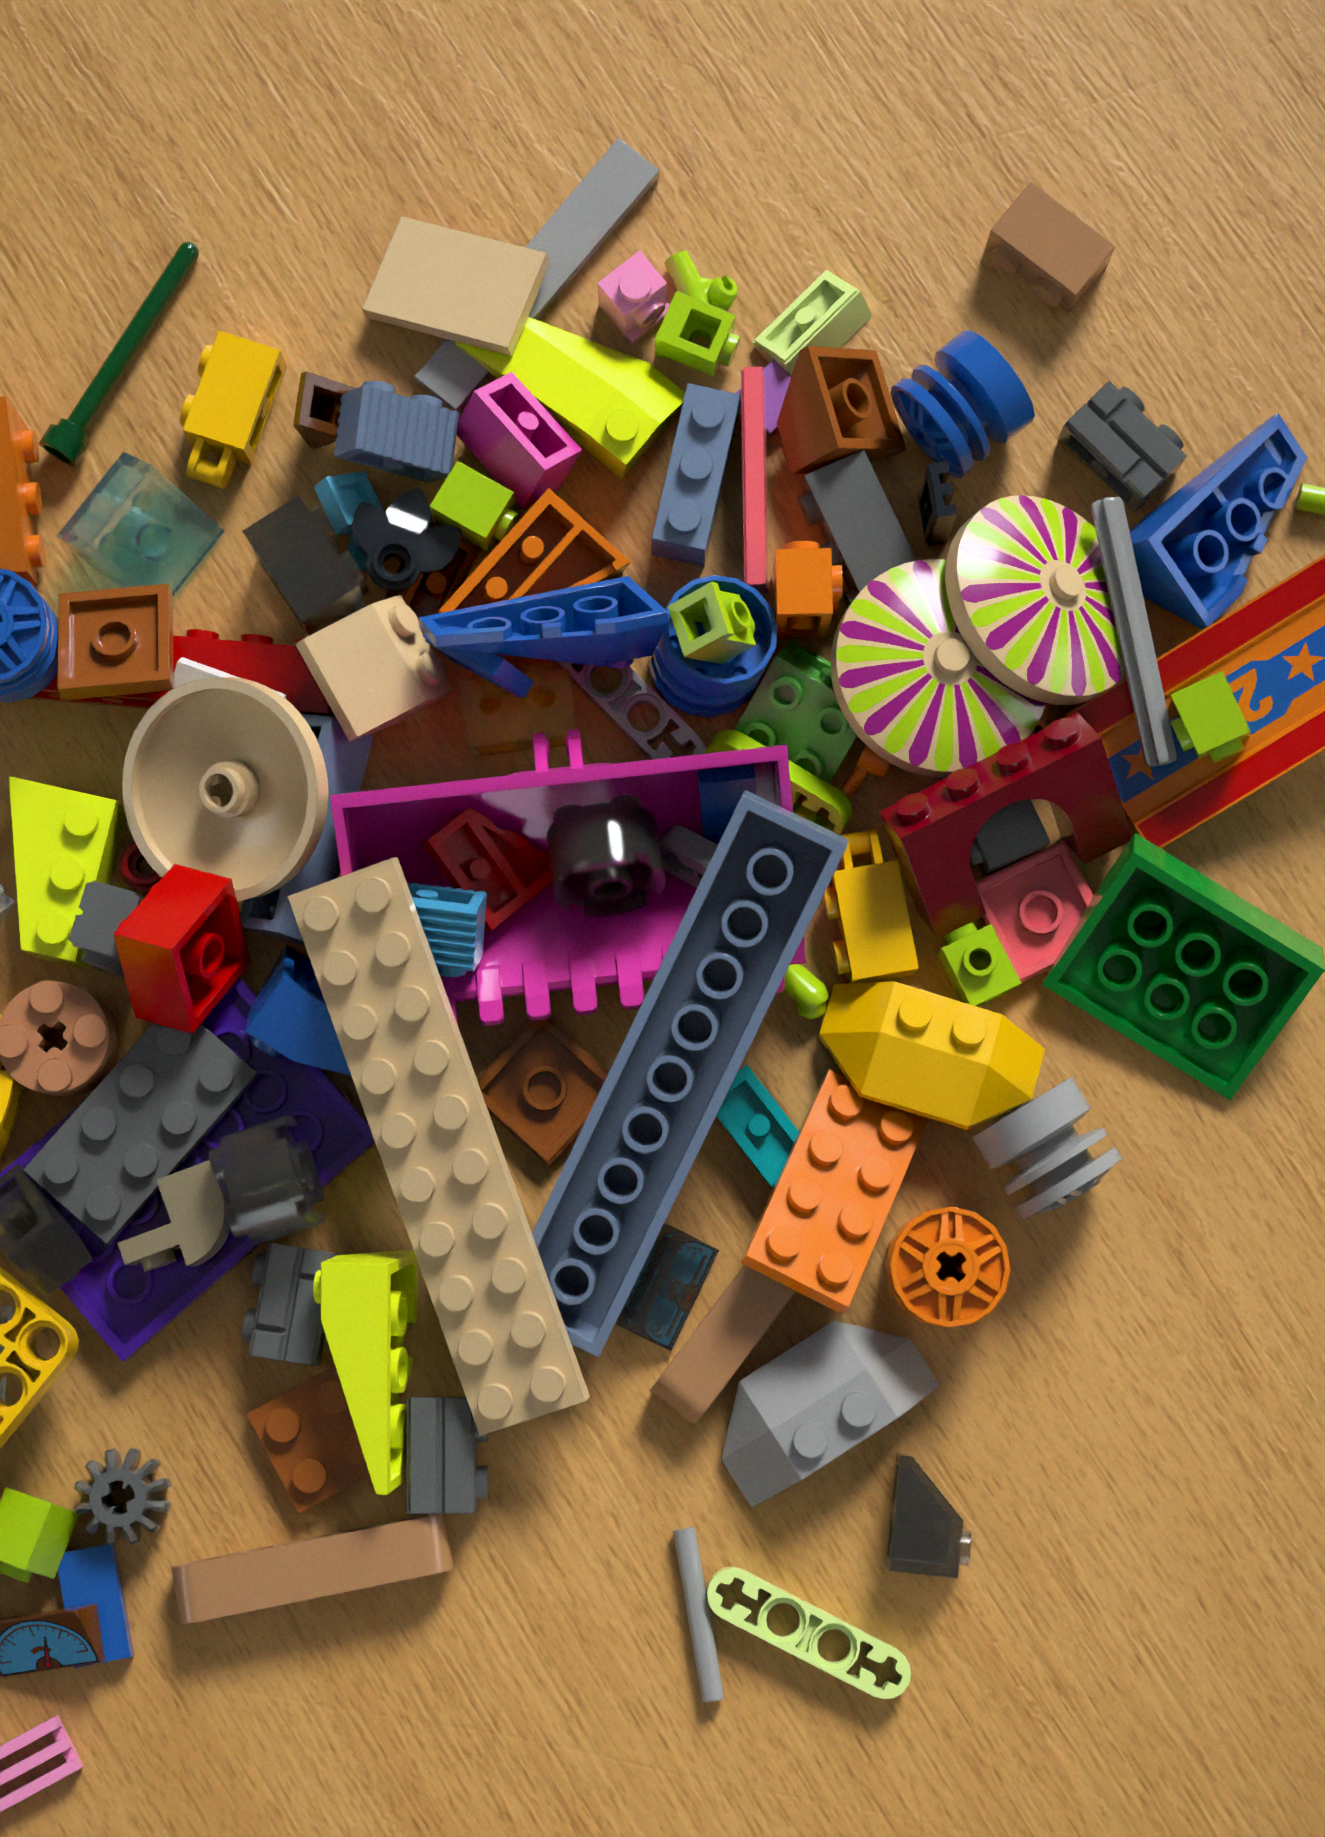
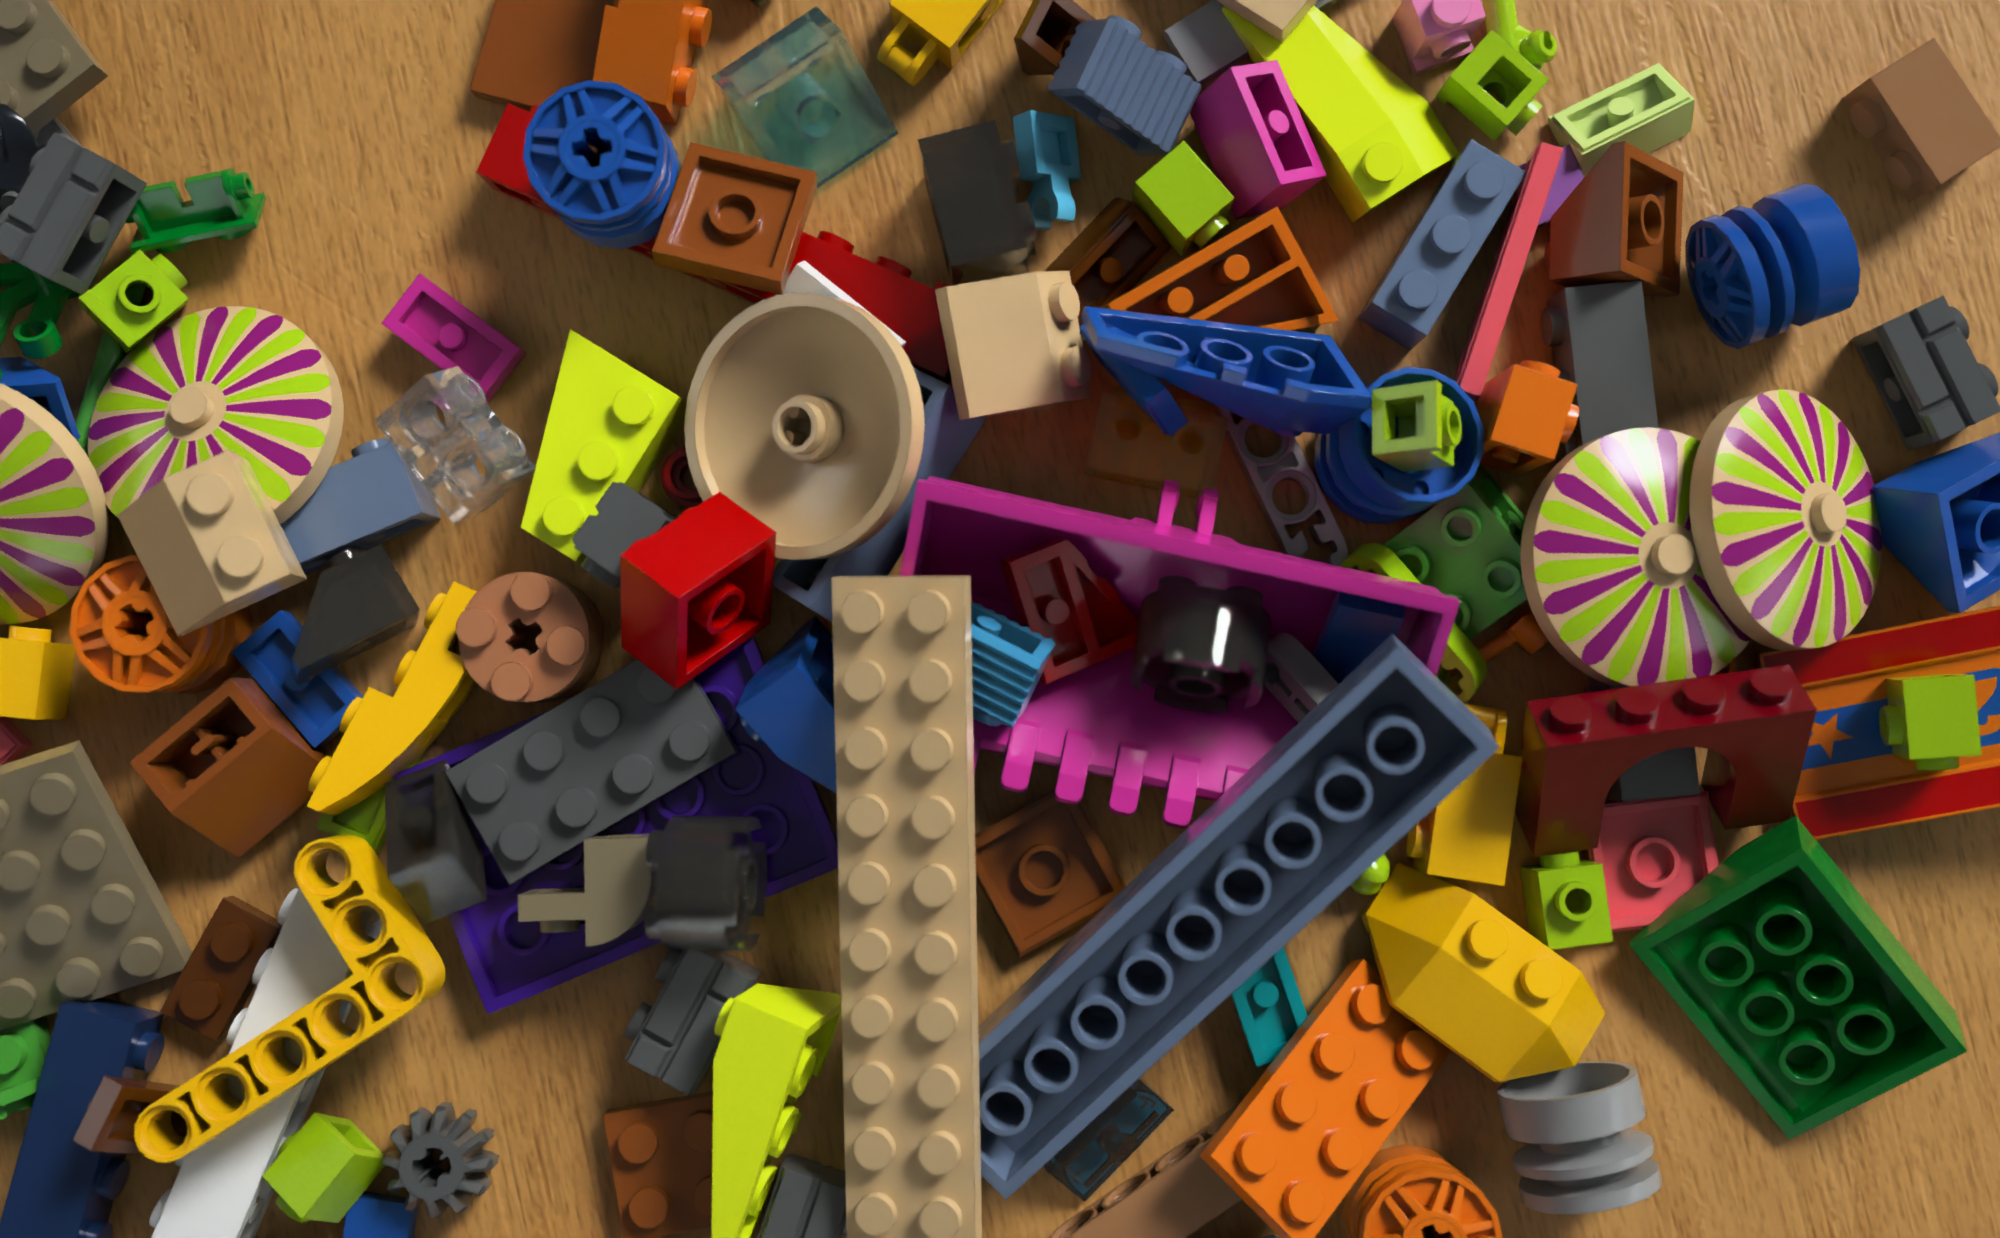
camera: 20 degrees right, 5 degrees up
(403, 533) = (1098, 205): black plate -> none
(934, 504) = (1706, 382): black tile -> none
(1133, 631) = (1877, 590): light grey axle -> none

